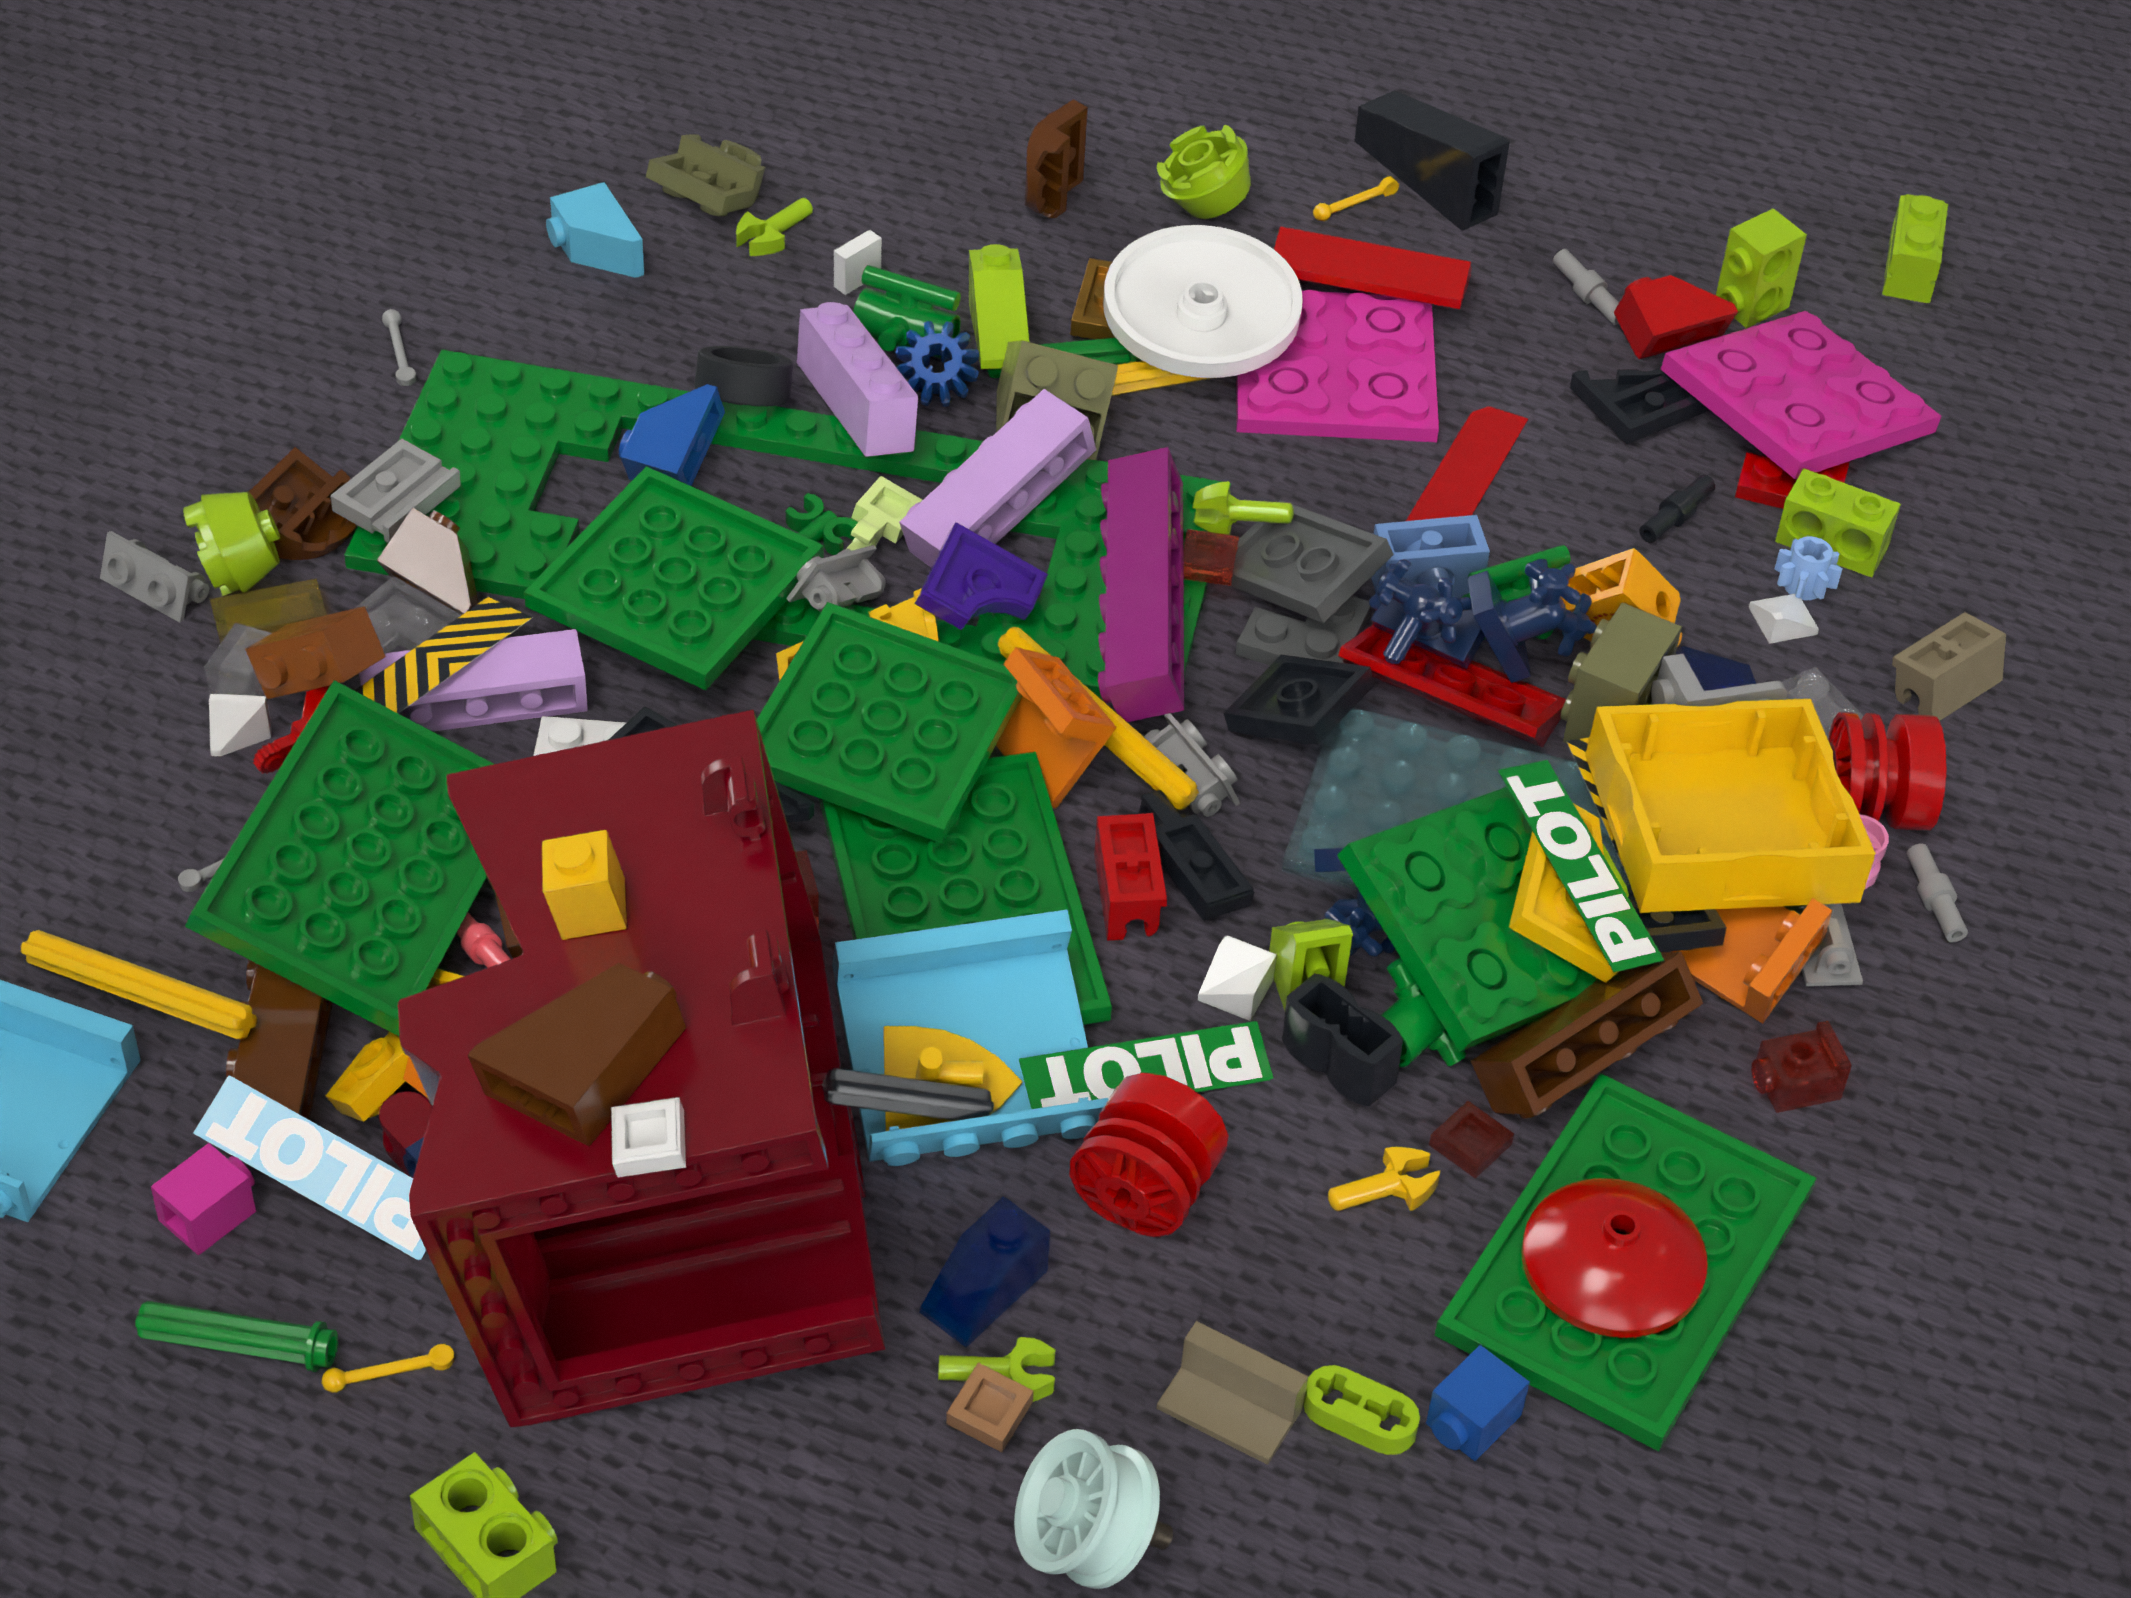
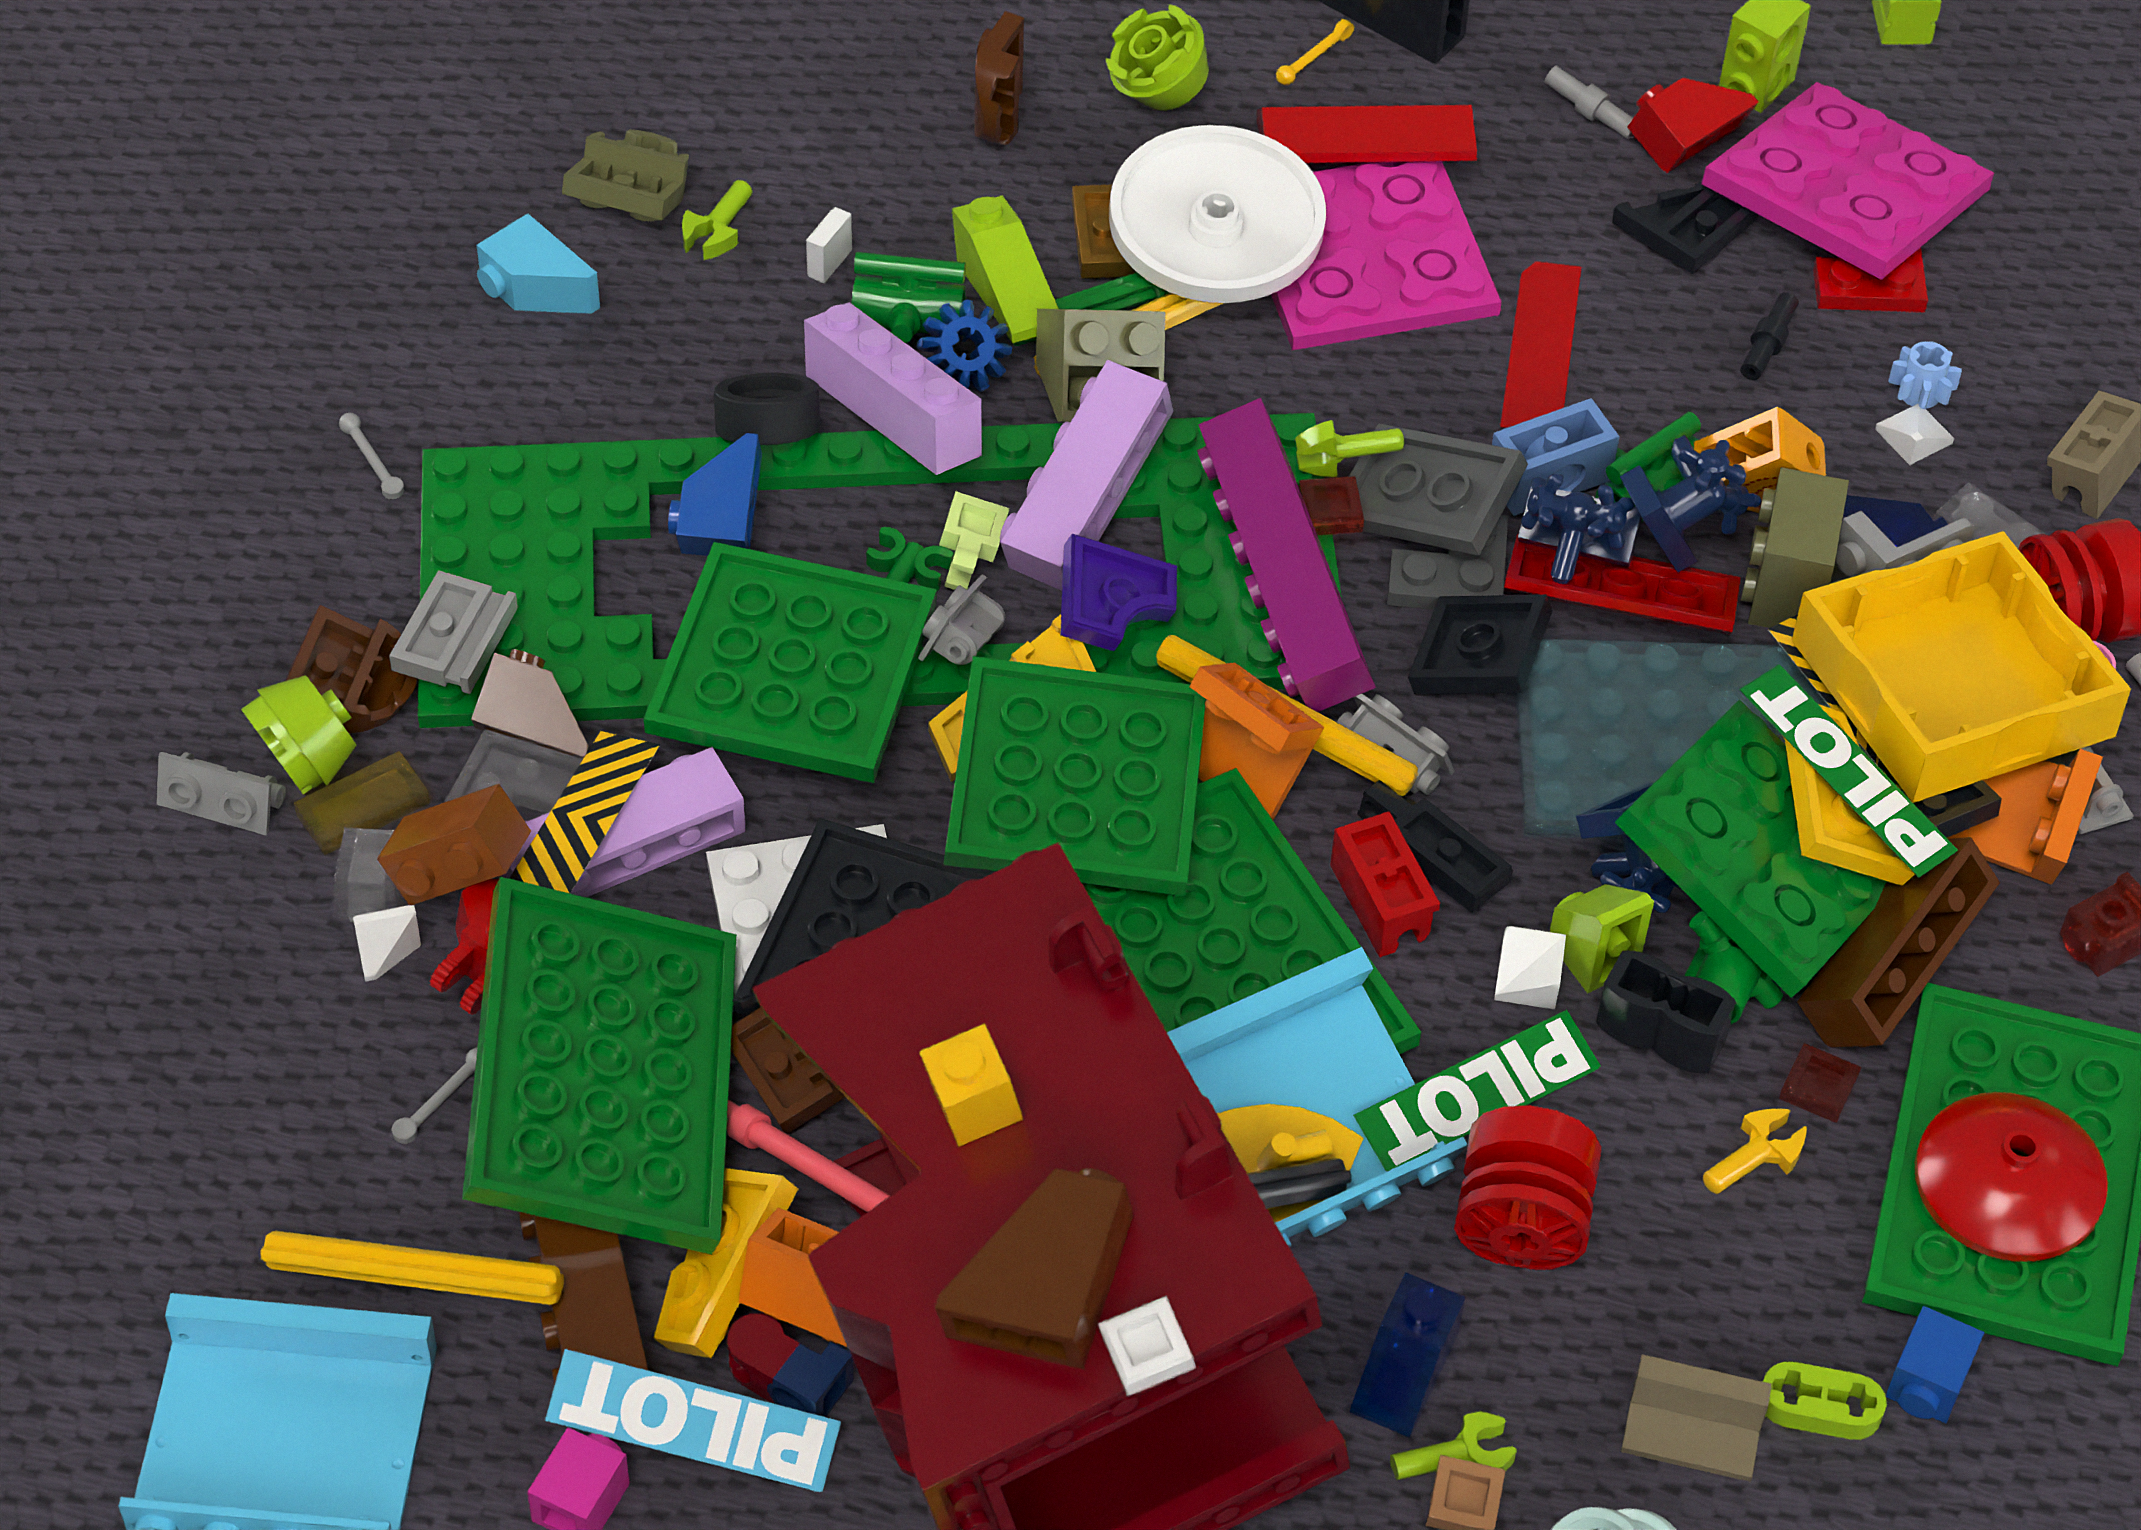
camera: 15 degrees left, 5 degrees up
(1846, 517) = (1939, 311): lime brick -> none

